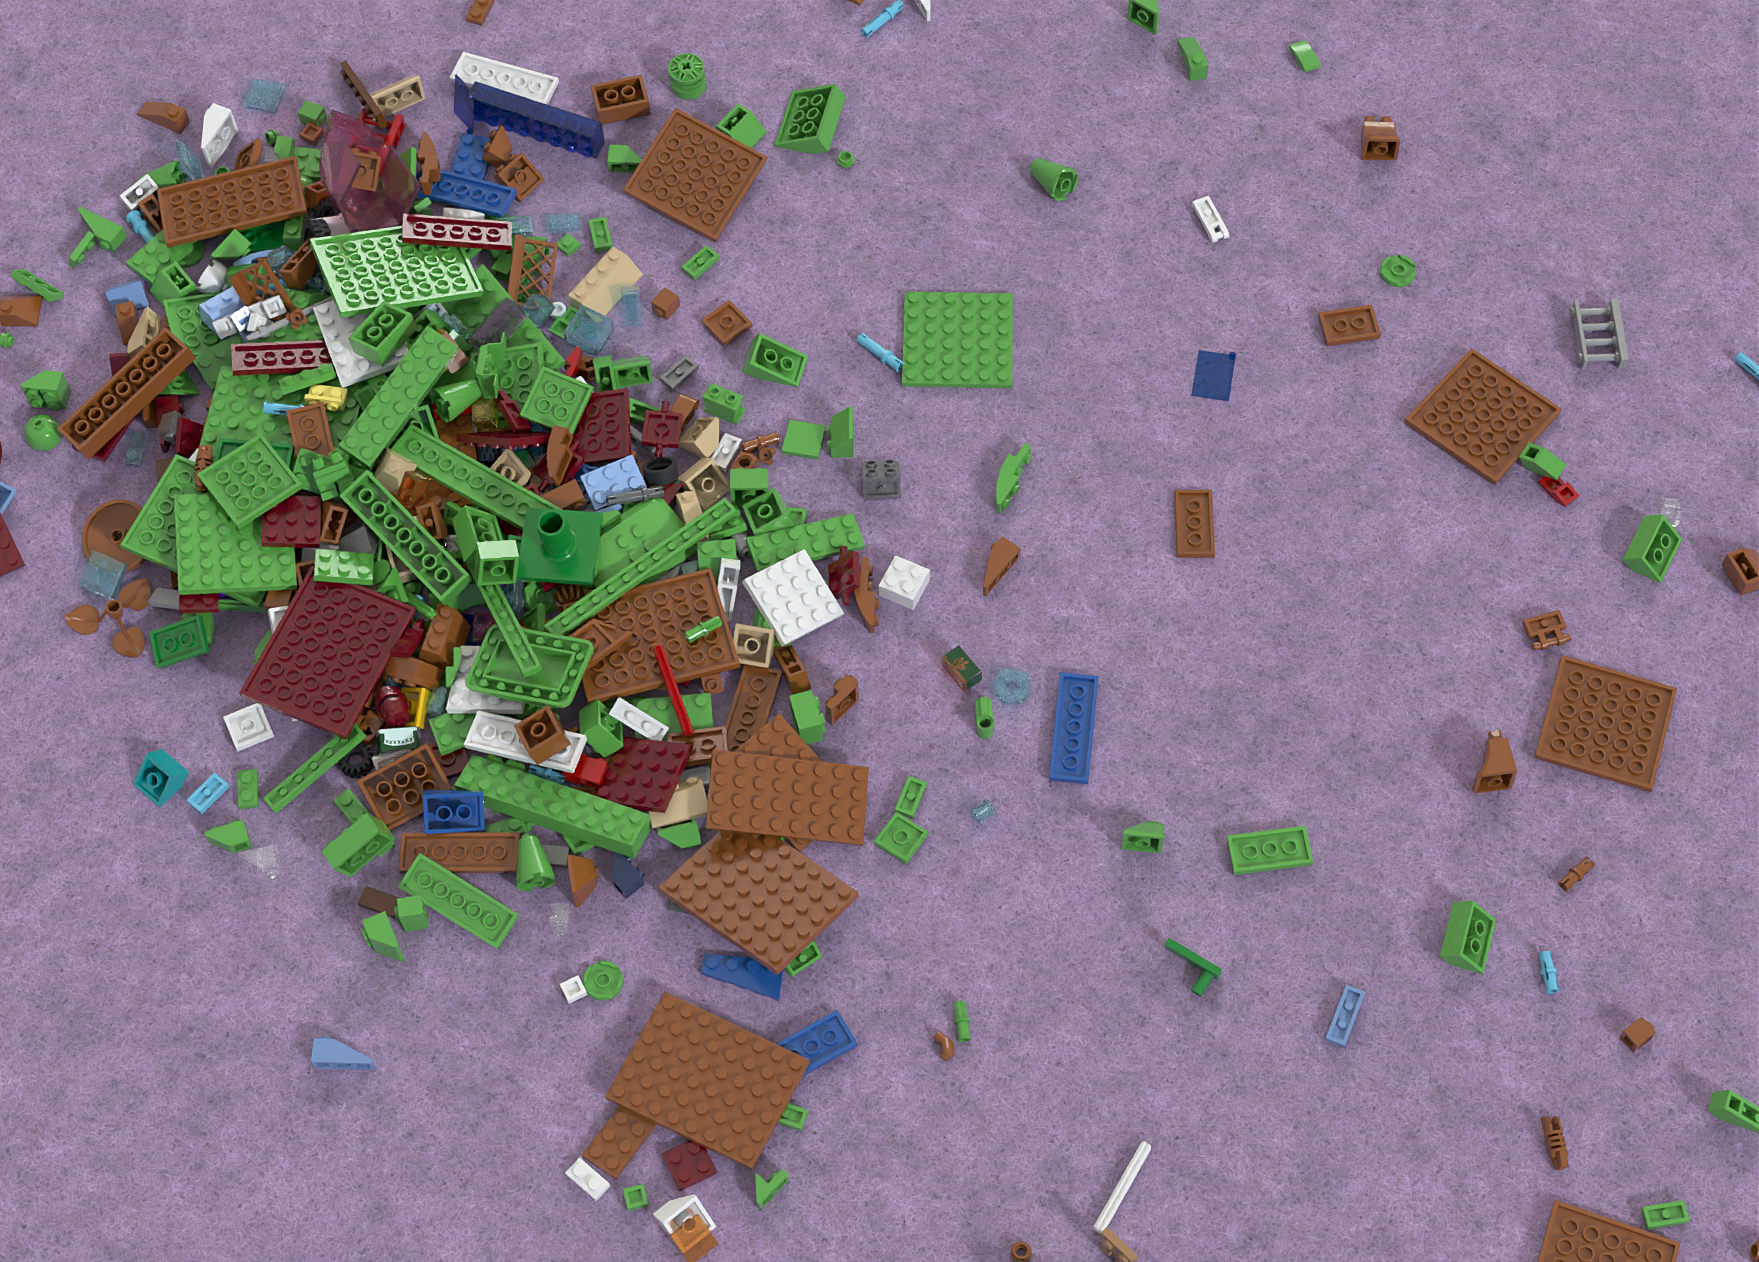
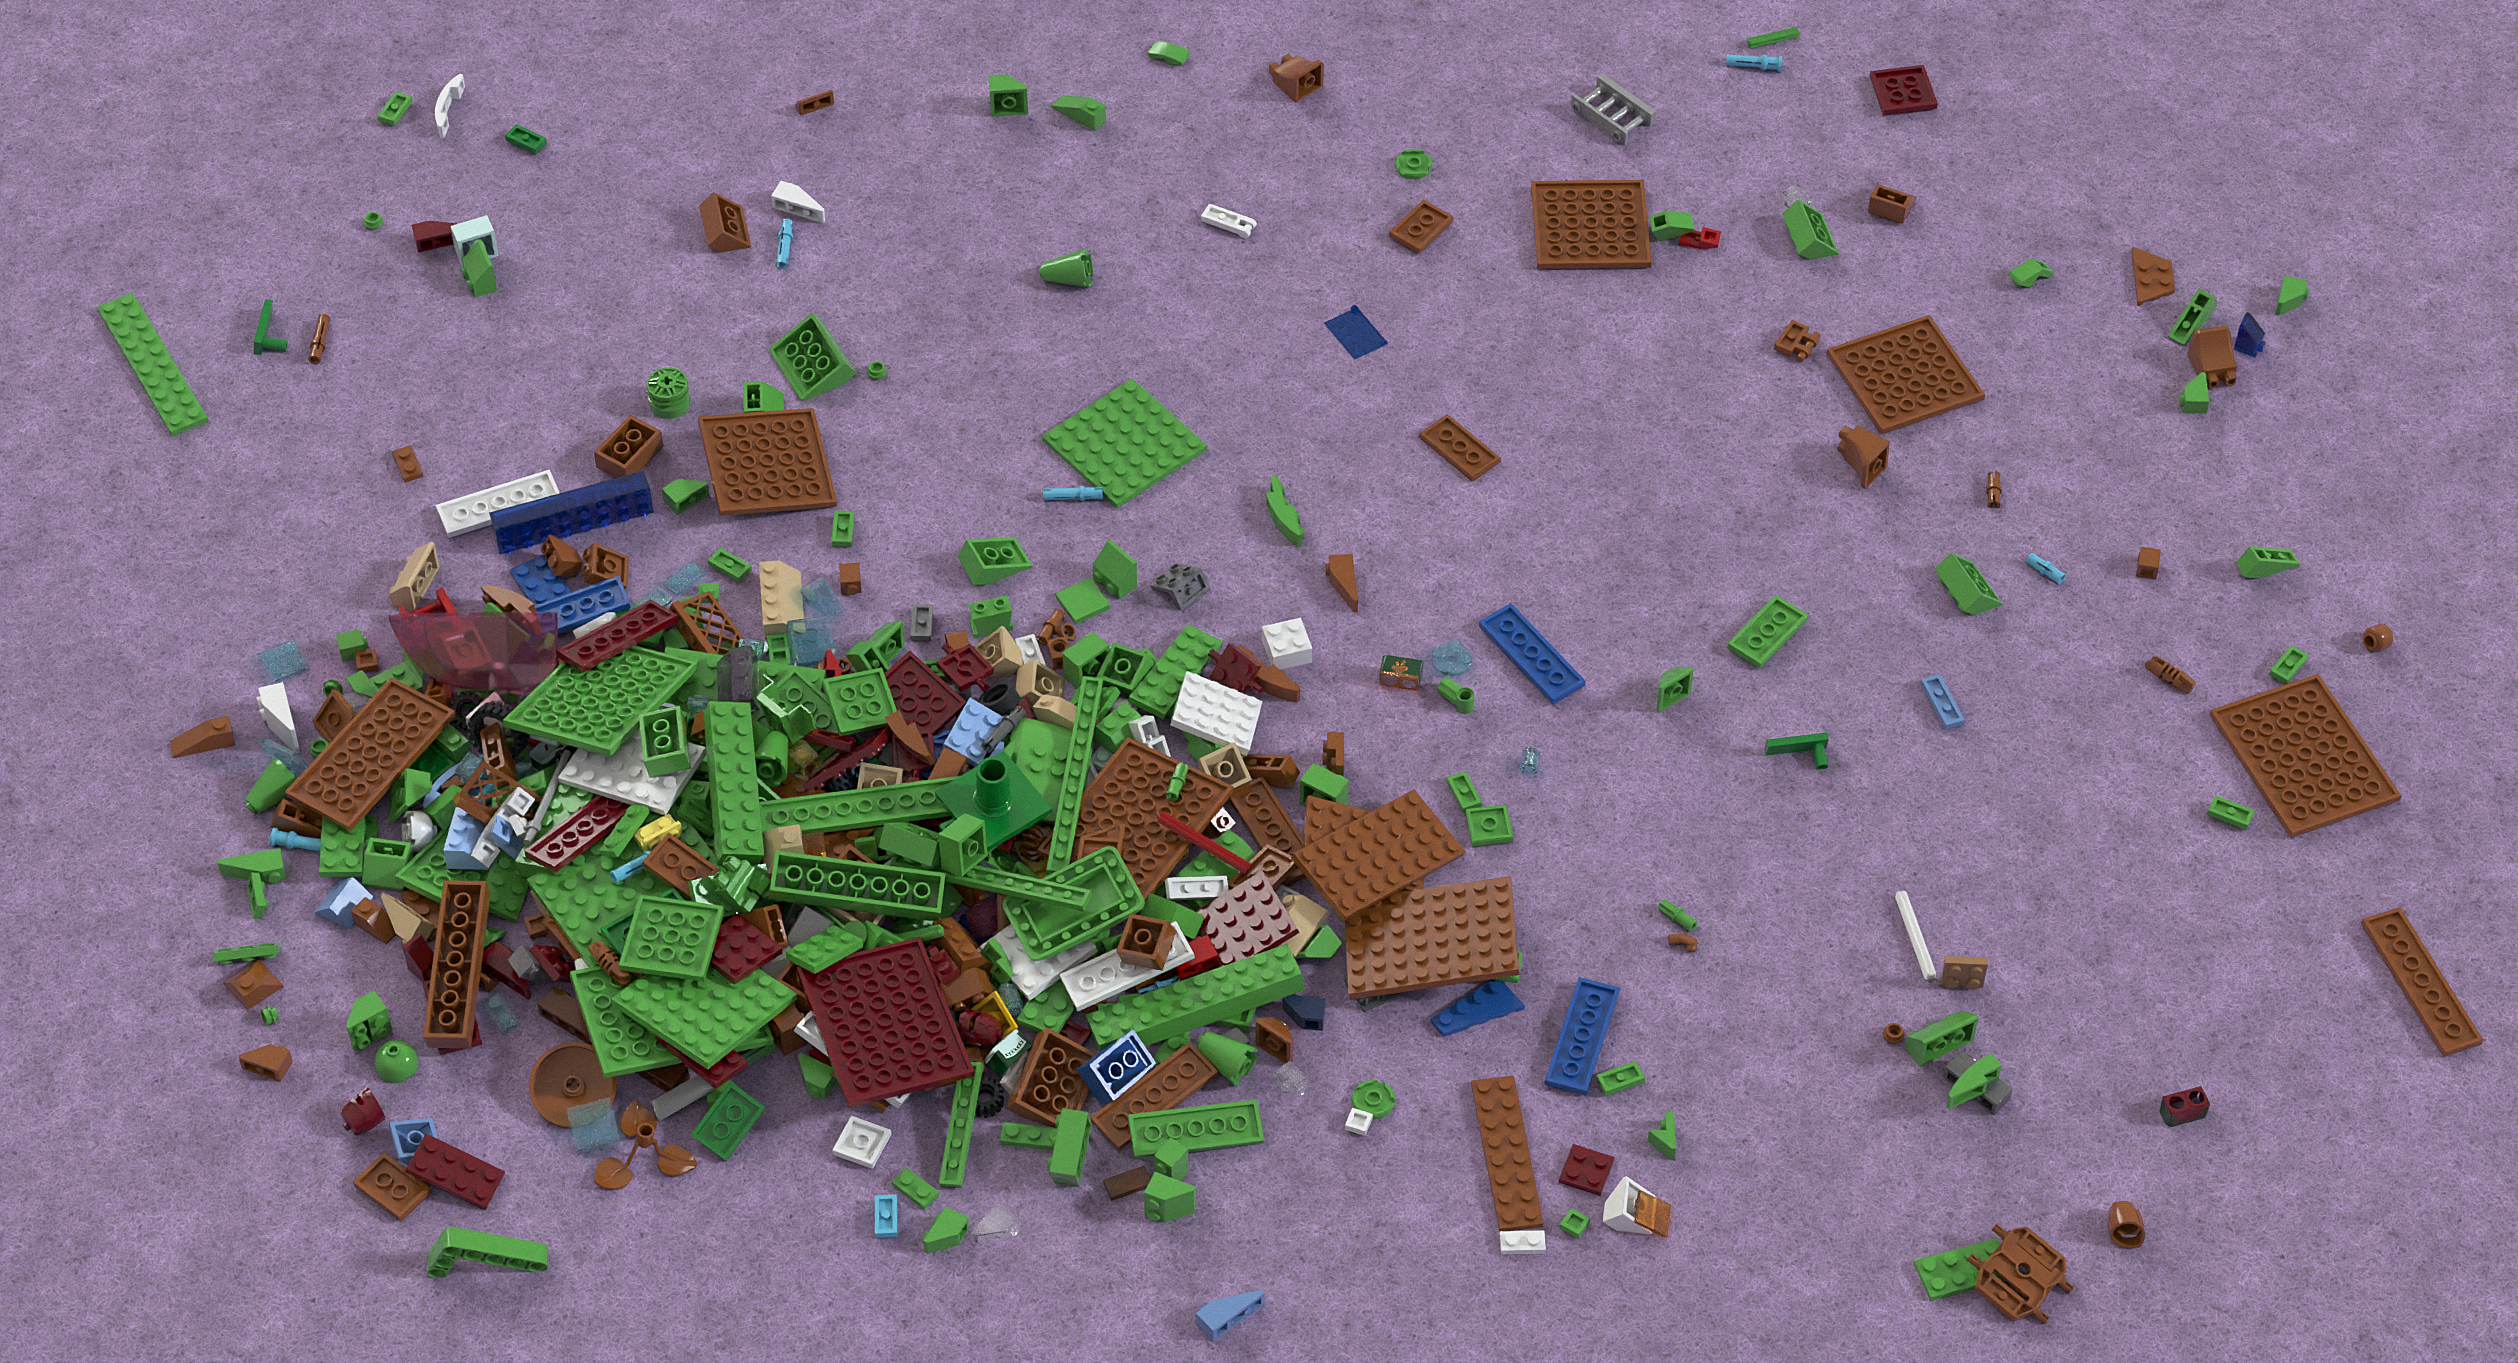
camera: 45 degrees left, 10 degrees down
(138, 192) = (262, 812): white slope -> none
(160, 776) = (830, 1236): teal slope -> none
(301, 318) = (553, 795): dark orange plate -> none
(362, 94) = (388, 593): reddish brown plate -> none
(464, 104) = (495, 539): clear blue piece -> none
(708, 1080) = (1538, 1098): dark orange plate -> none
(726, 323) = (919, 558): dark orange plate -> none

